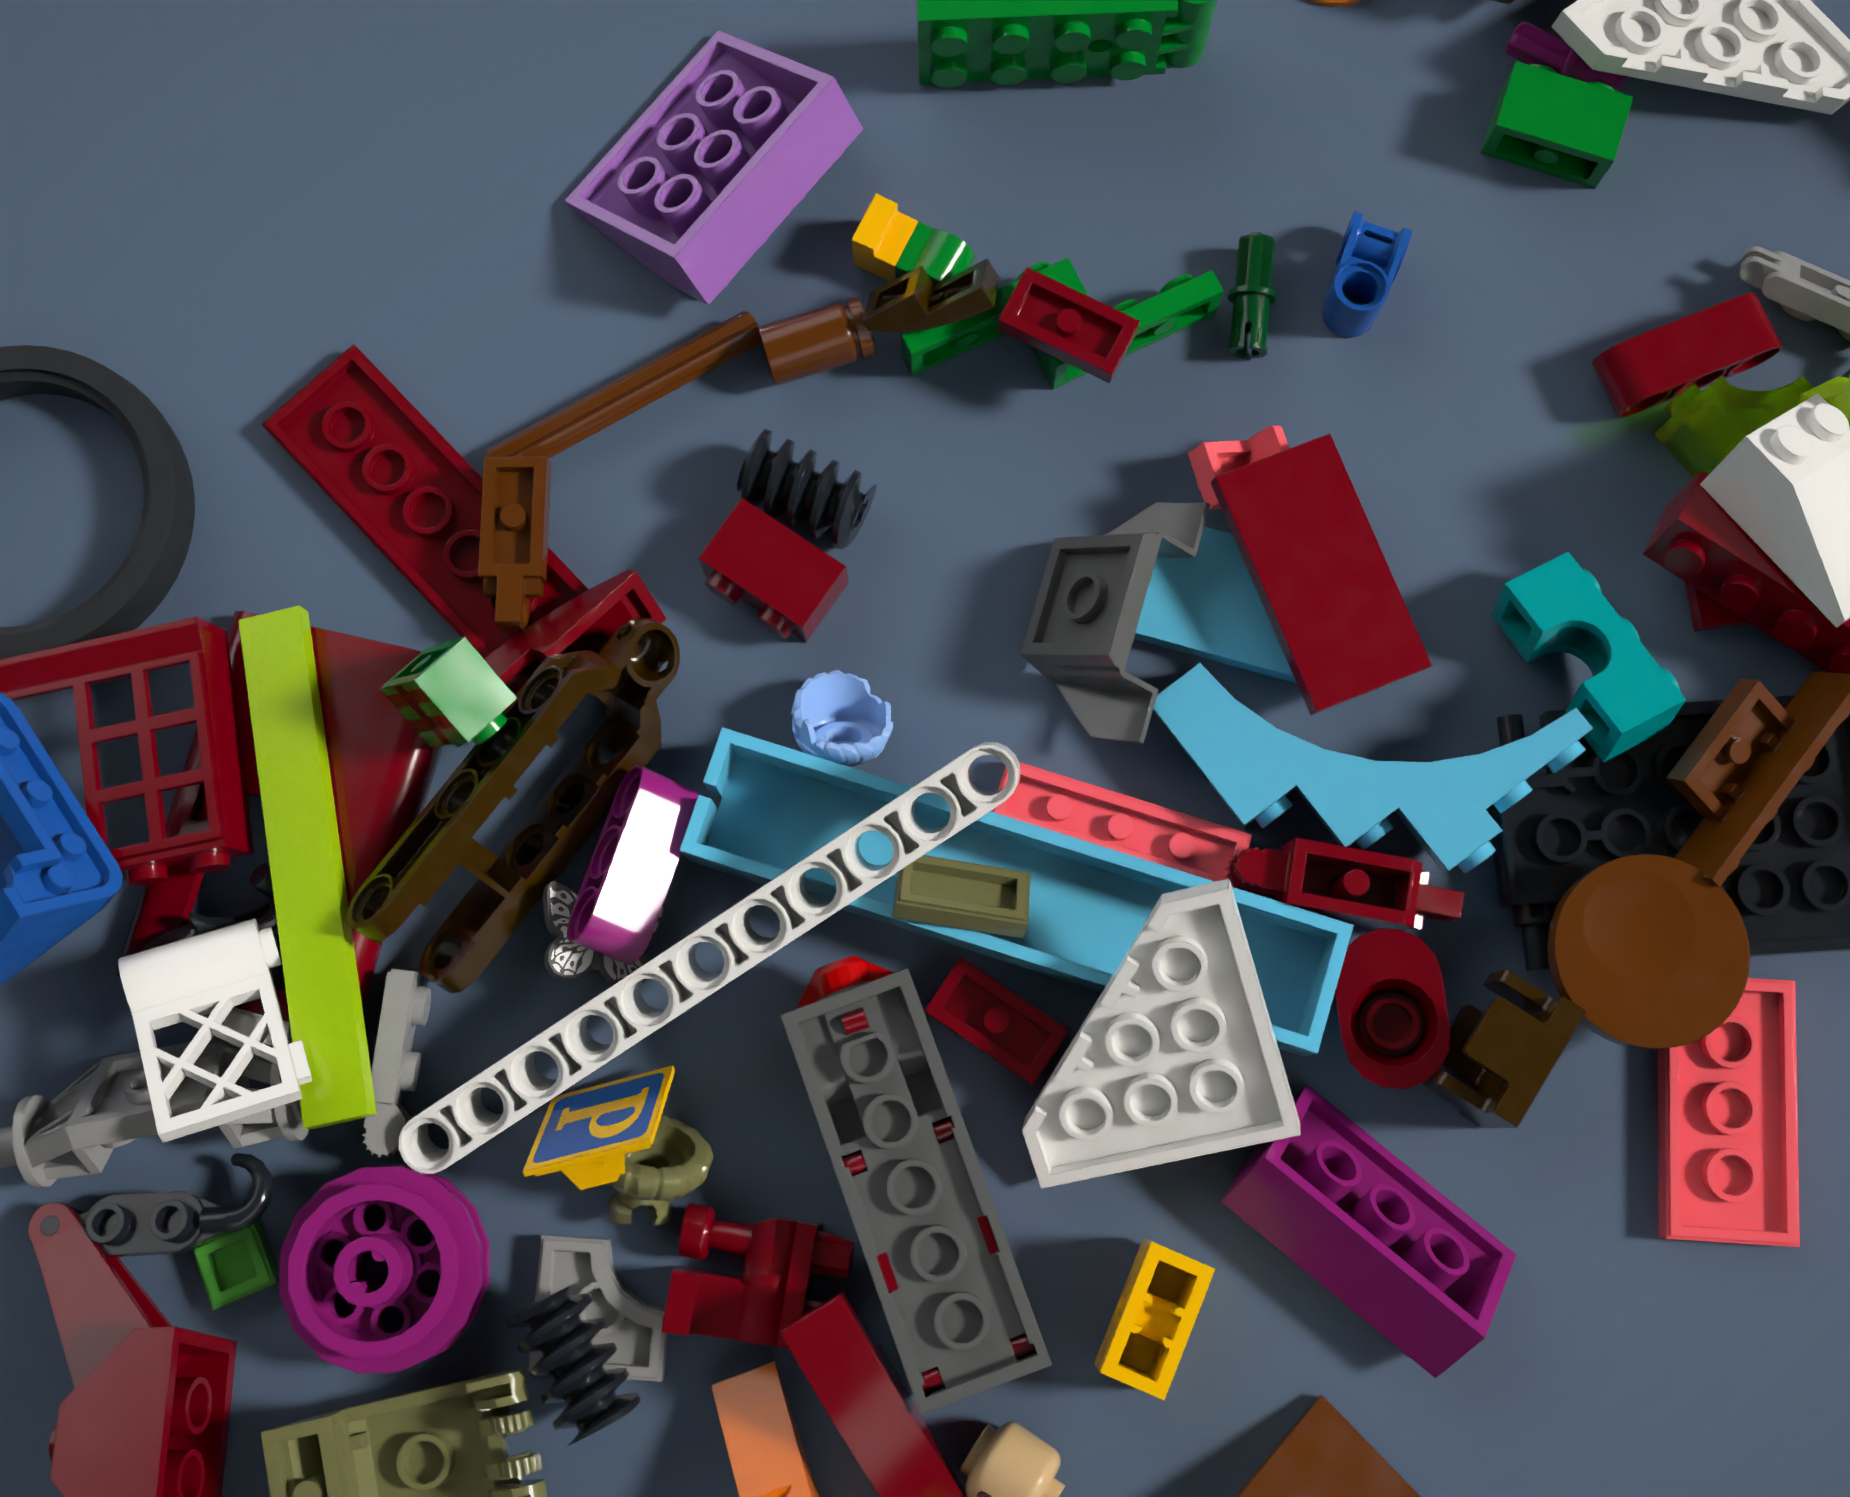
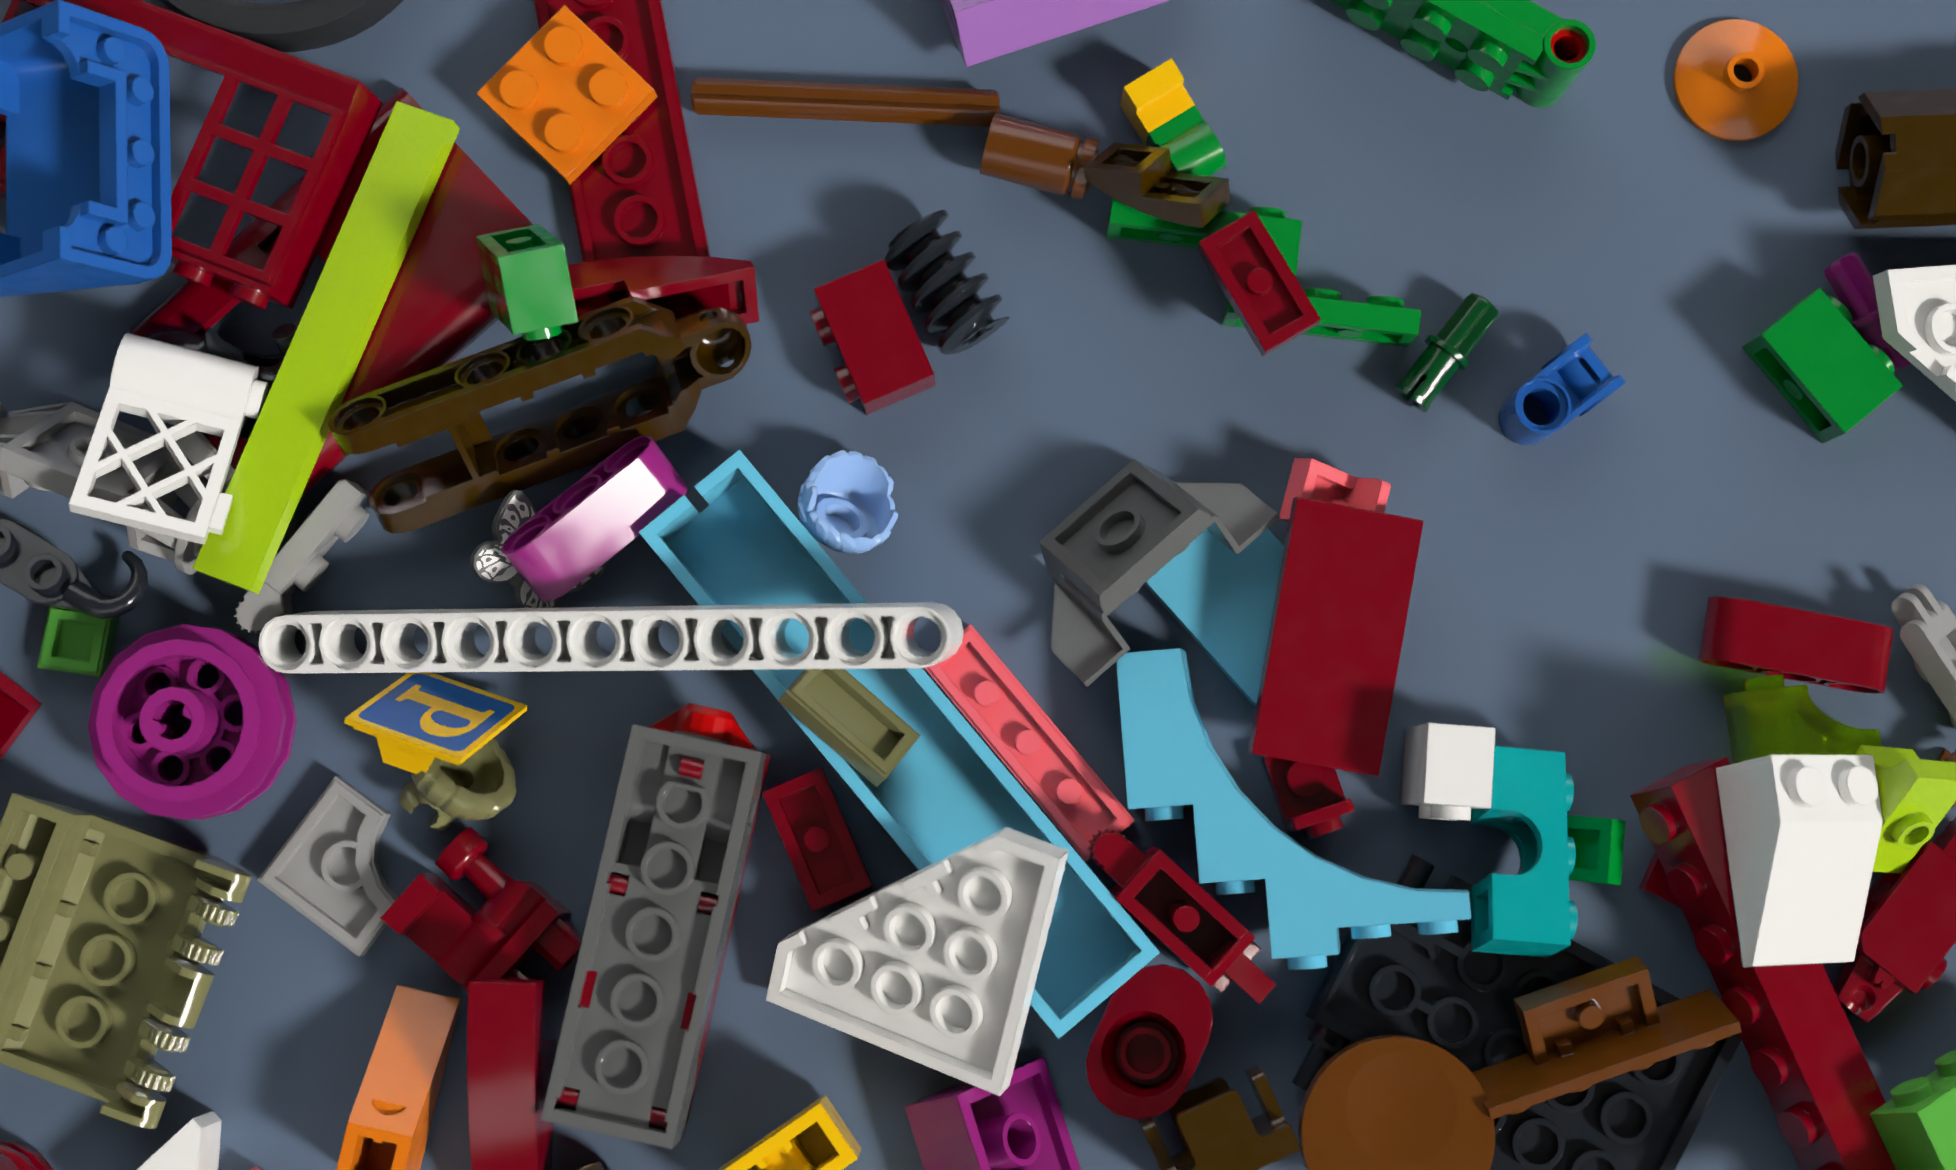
camera: 30 degrees right, 5 degrees up
(383, 529) = (567, 94): none -> orange plate
(514, 535) = (672, 170): reddish brown hinge -> none
(574, 1363) = (295, 898): black piece -> none
(1379, 723) = (1307, 796): none -> dark red bracket
(1484, 624) = (1448, 770): none -> white brick
(1648, 613) = (1598, 849): none -> green plate

